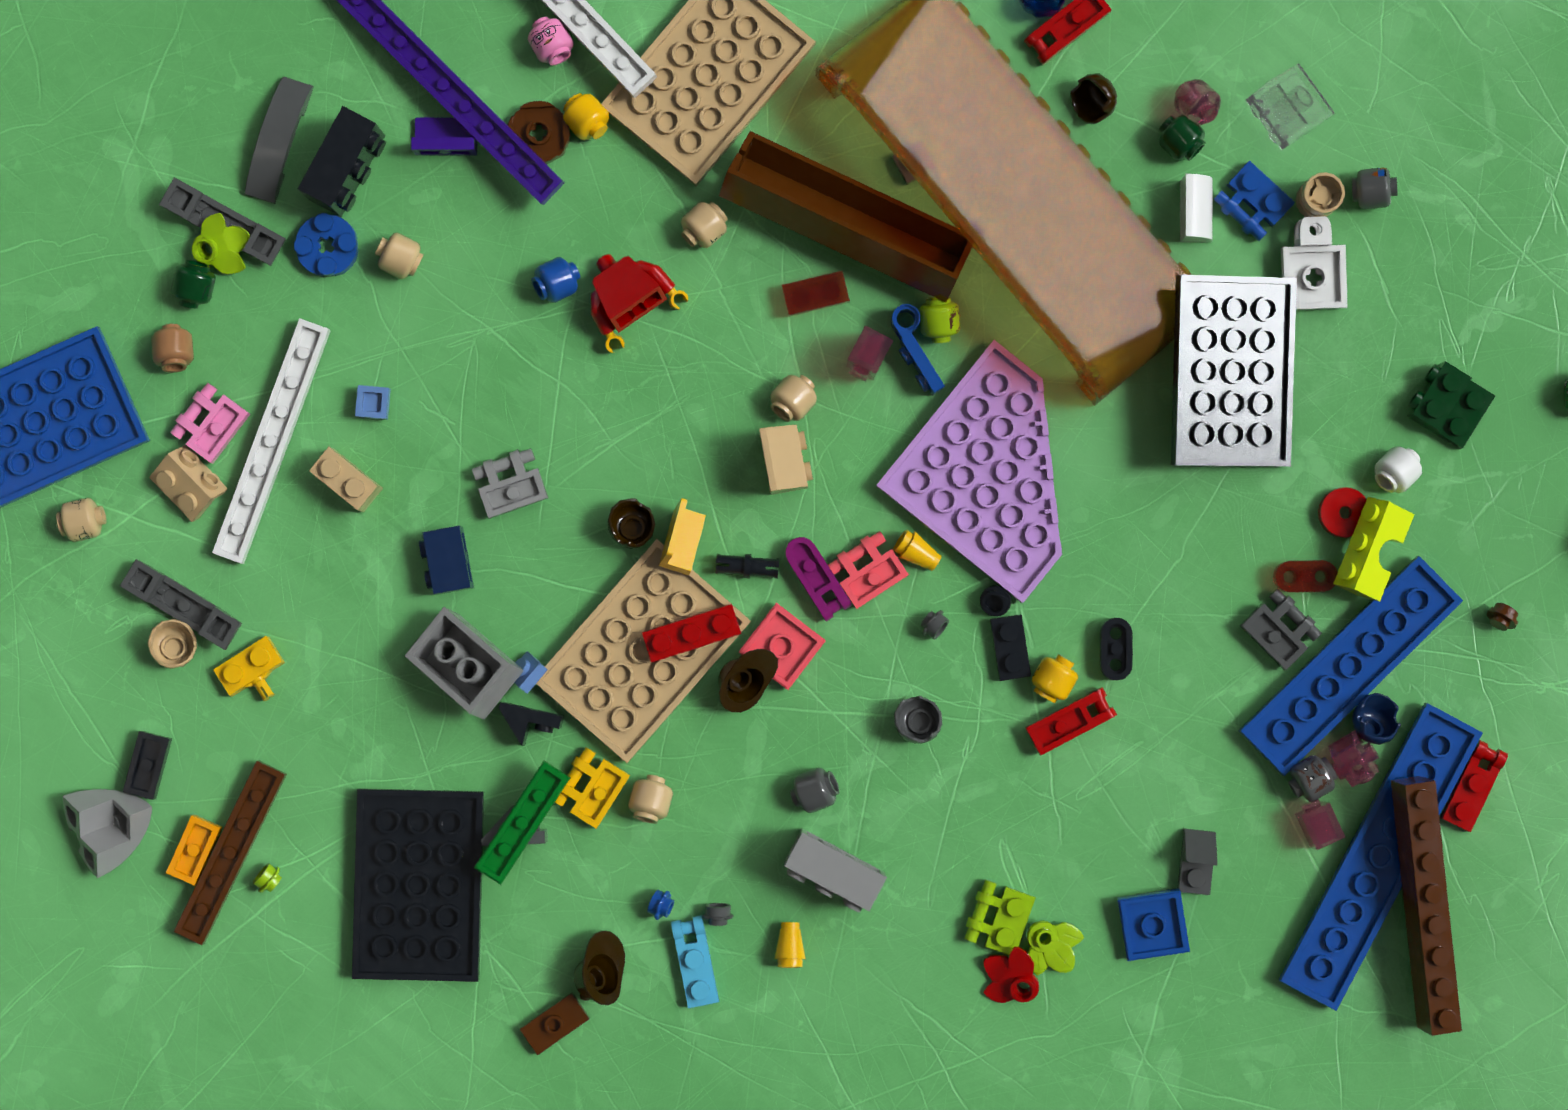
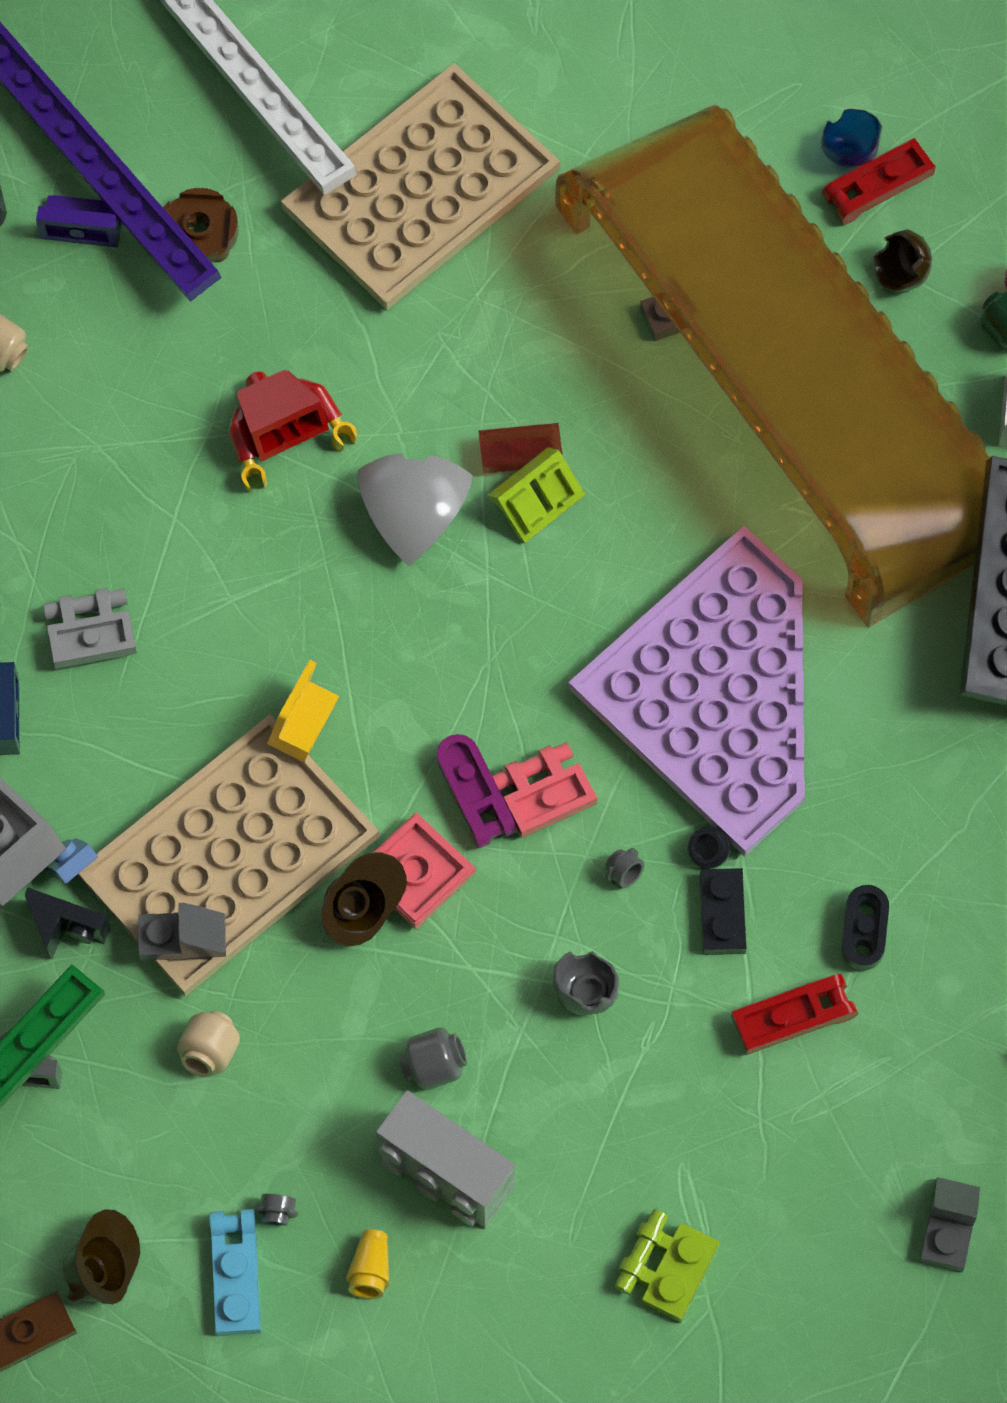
camera: 10 degrees right, 20 degrees down
(550, 40) = (231, 124): bright pink head -> none
(555, 280) = (191, 392): blue head -> none
(586, 116) = (261, 213): yellow head -> none
(600, 791) = (140, 1028): yellow plate -> none
(619, 723) = (182, 935): none -> dark grey slope
(631, 523) = (238, 690): dark brown hair -> none
(660, 904) = (199, 1185): blue plate -> none
(691, 633) = (297, 833): red plate -> none
(704, 224) = (389, 351): tan head -> none
(740, 352) = (412, 500): none -> light grey brick
(747, 566) = (384, 765): black pin -> none
(784, 458) = (451, 634): tan slope -> none
(793, 398) = (474, 565): tan head -> none
(822, 342) = (521, 503): none -> lime piece
(846, 216) = (573, 355): reddish brown piece -> none
(868, 354) = (579, 518): clear pink brick -> none
(913, 353) = (637, 529): blue plate -> none
(916, 550) = (611, 771): yellow cone -> none
(939, 319) = (676, 494): lime head -> none
(1008, 973) = (668, 1343): red plate -> none
(1054, 678) = (778, 954): yellow head -> none
(1056, 949) = (740, 1319): lime plate -> none
(1153, 924) = (881, 1298): blue plate -> none

